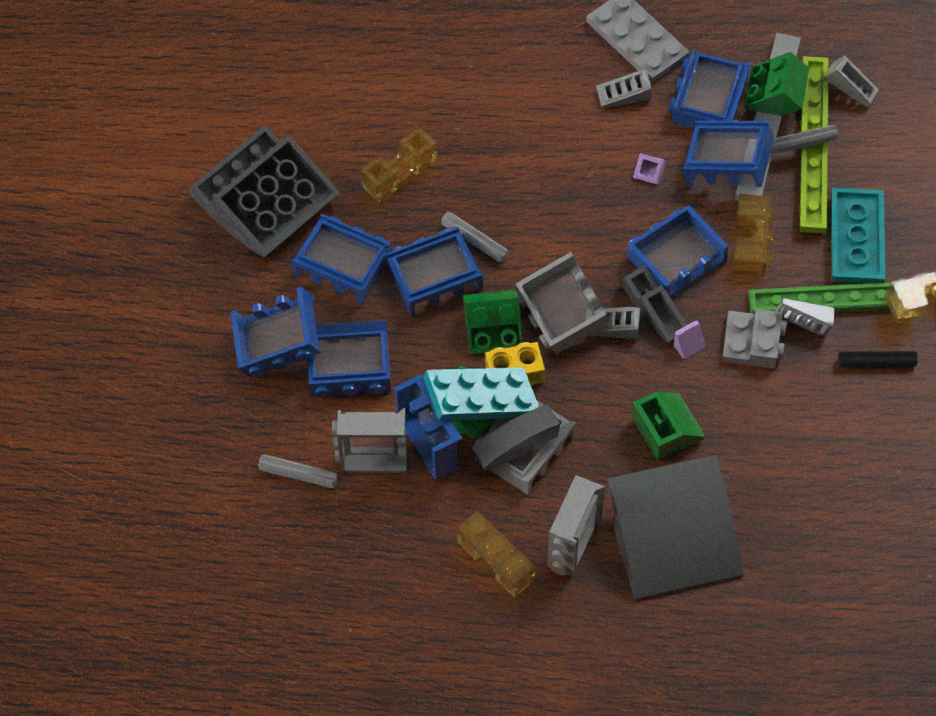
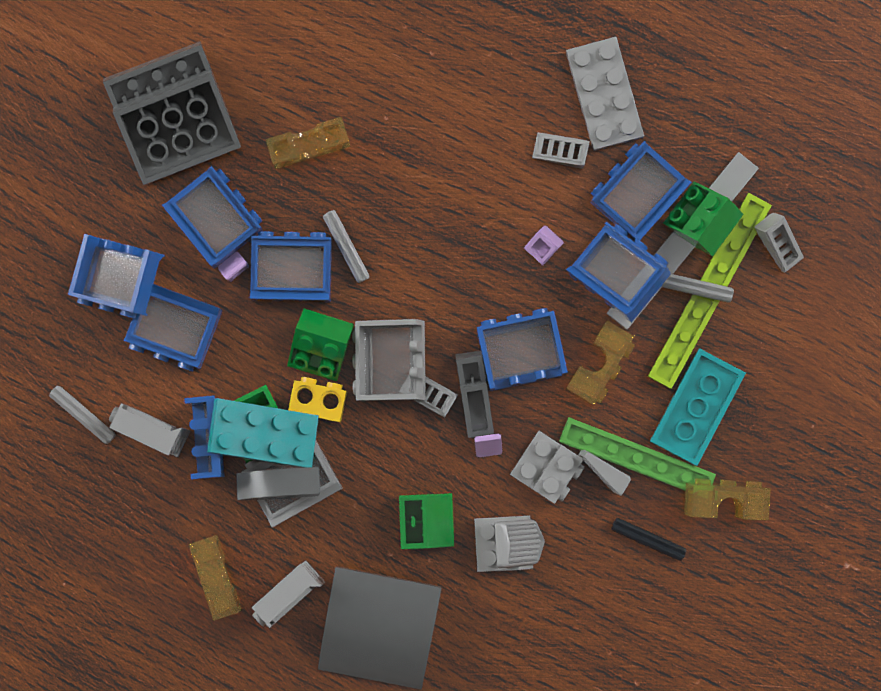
camera: 25 degrees right, 25 degrees up
(380, 292) = (233, 266): none -> lavender slope
(752, 412) = (507, 543): none -> light grey piece

